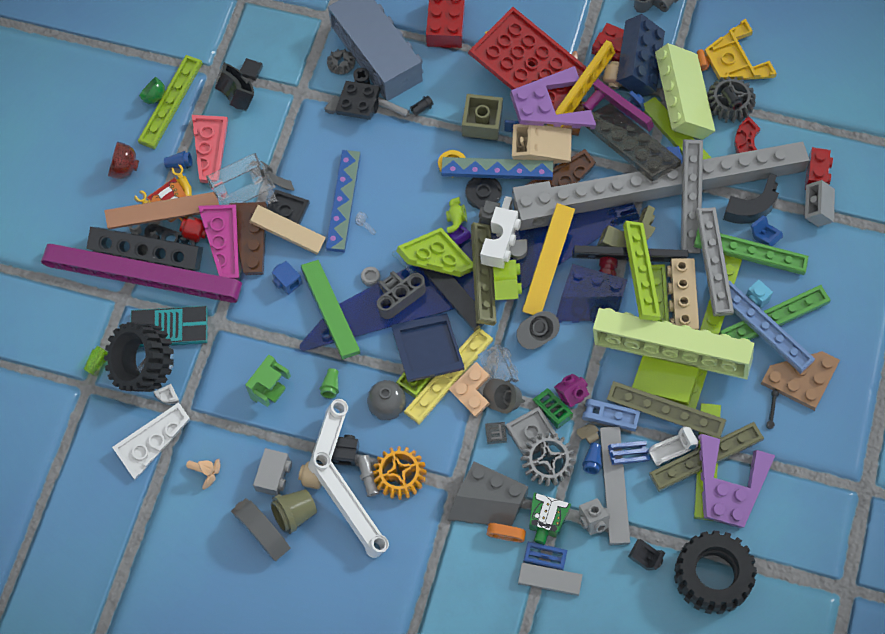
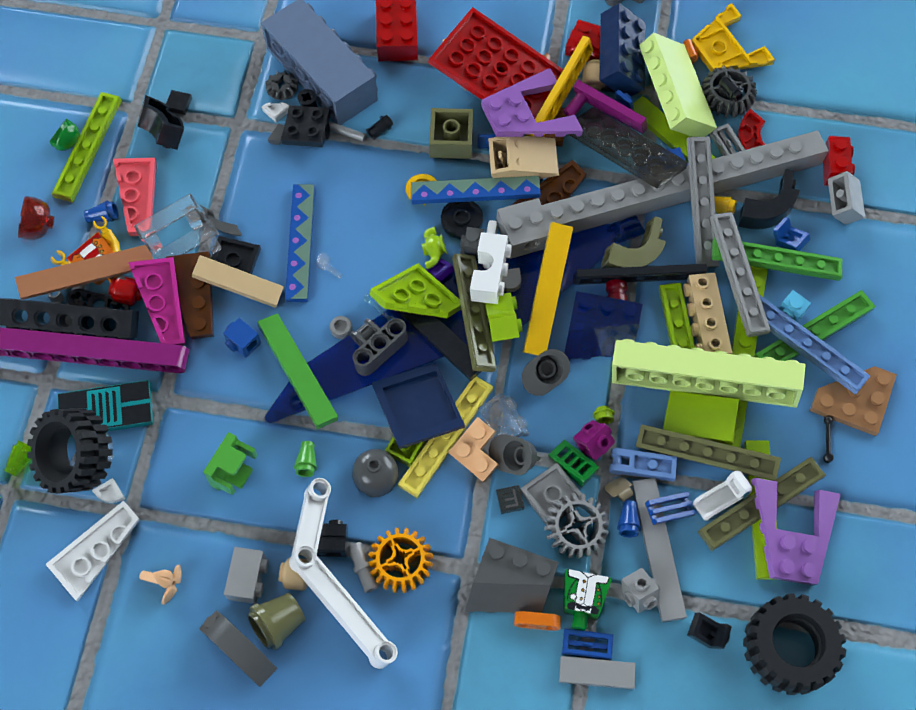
camera: 10 degrees left, 0 degrees up
(333, 83) = (276, 110): none -> white tile
(583, 370) = (604, 415): none -> lime plate
(641, 271) = (660, 293): lime plate -> none
(712, 200) = (724, 204): none -> yellow cone
(729, 139) = (724, 144): none -> light grey tile

